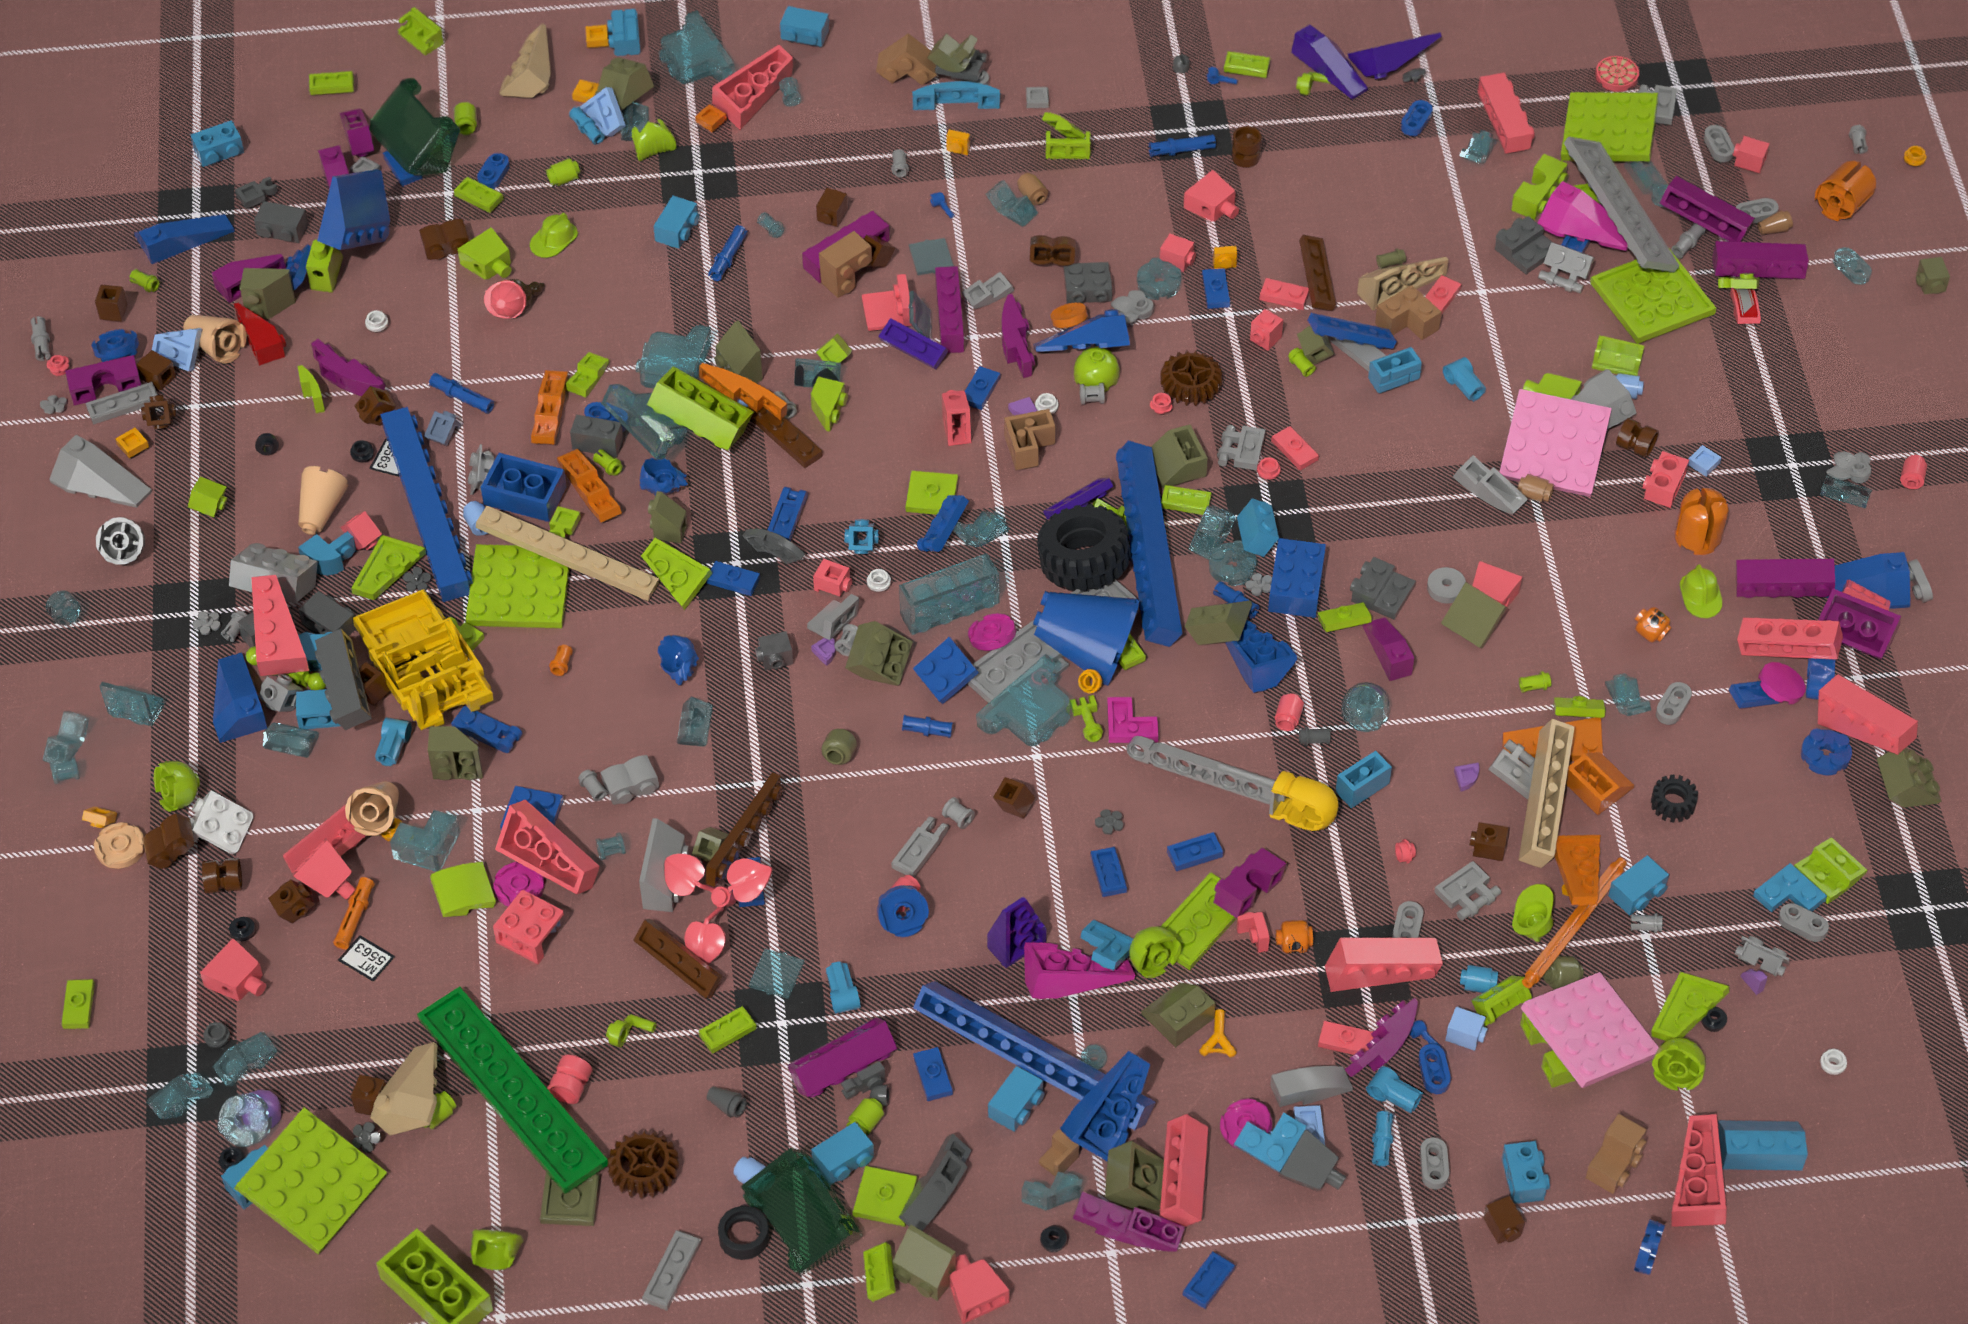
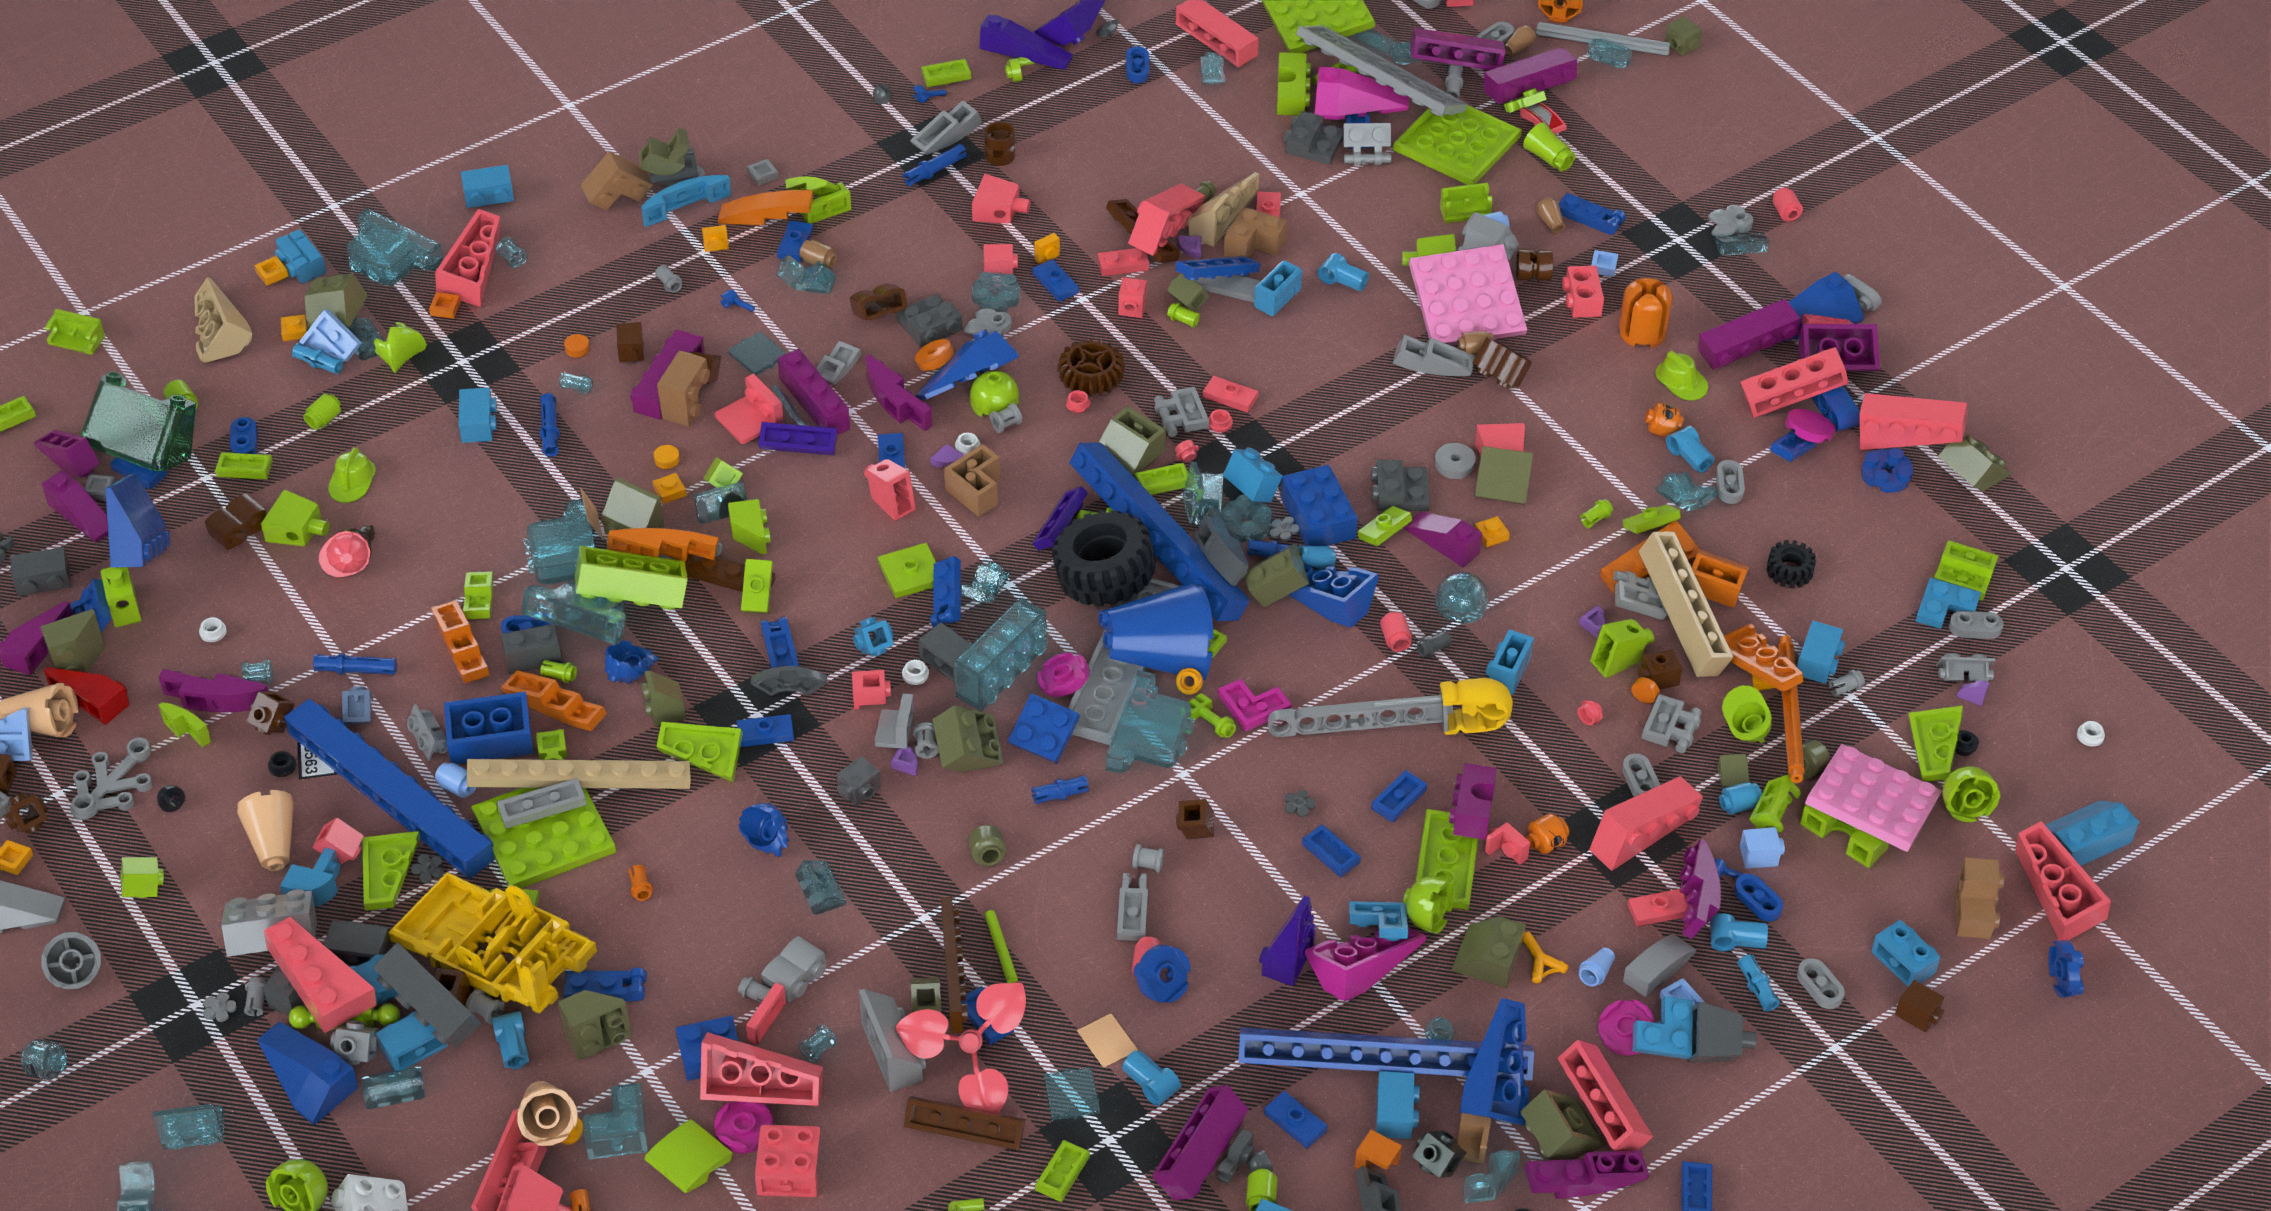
camera: 30 degrees left, 5 degrees down
(209, 422) = (87, 805): none -> light grey plant
(387, 369) = (258, 671): none -> clear light blue bush
(389, 705) = (484, 1005): none -> light grey bush
(523, 564) = (541, 803): none -> light grey plate
(586, 805) = (766, 1014): none -> coral tile
(709, 341) = (591, 513): none -> light nougat sticker
(787, 345) = (669, 488): none -> light orange plate
(792, 193) = (576, 345): none -> orange tile
(799, 456) = (757, 586): none -> lime plate
(799, 833) = (1001, 946): none -> lime bar
(802, 317) = (666, 457): none -> light orange tile
(832, 944) = (1107, 1040): none -> light nougat sticker
(910, 565) = (942, 648): none -> dark grey brick
(973, 1128) = (1377, 1150): none -> orange panel
(1015, 129) = (764, 206): none -> orange slope
(1020, 1153) = (1438, 1153): none -> pearl dark grey brick
(1028, 163) = (793, 239): none -> blue plate
(1186, 578) = (1220, 548): none -> dark grey slope
(1197, 521) = (1193, 492): none -> clear light blue piece
(1212, 116) = (947, 128): none -> light grey slope
(1222, 483) = (1186, 451): none -> coral plate
(1256, 1064) = (1595, 969): none -> light blue cone
(1265, 619) = (1317, 556): none -> dark azure cone
(1336, 267) = (1164, 217): none -> coral wedge
(1352, 302) = (1190, 245): none -> medium lavender tile
(1434, 660) = (1492, 531): none -> light orange plate
(1464, 852) = (1645, 690): none -> orange tile
(1467, 805) = (1620, 646): none -> lime torso
(1492, 954) = (1733, 769): none -> olive slope
(1543, 515) = (1502, 363): none -> reddish brown brick
(1658, 655) = (1688, 445): none -> dark azure piece
(1688, 396) = (1551, 214): none -> medium nougat cone
(1726, 410) = (1591, 214): none -> blue plate
(1729, 333) = (1549, 147): none -> lime plant
(1869, 256) = (1586, 36): none -> light grey axle

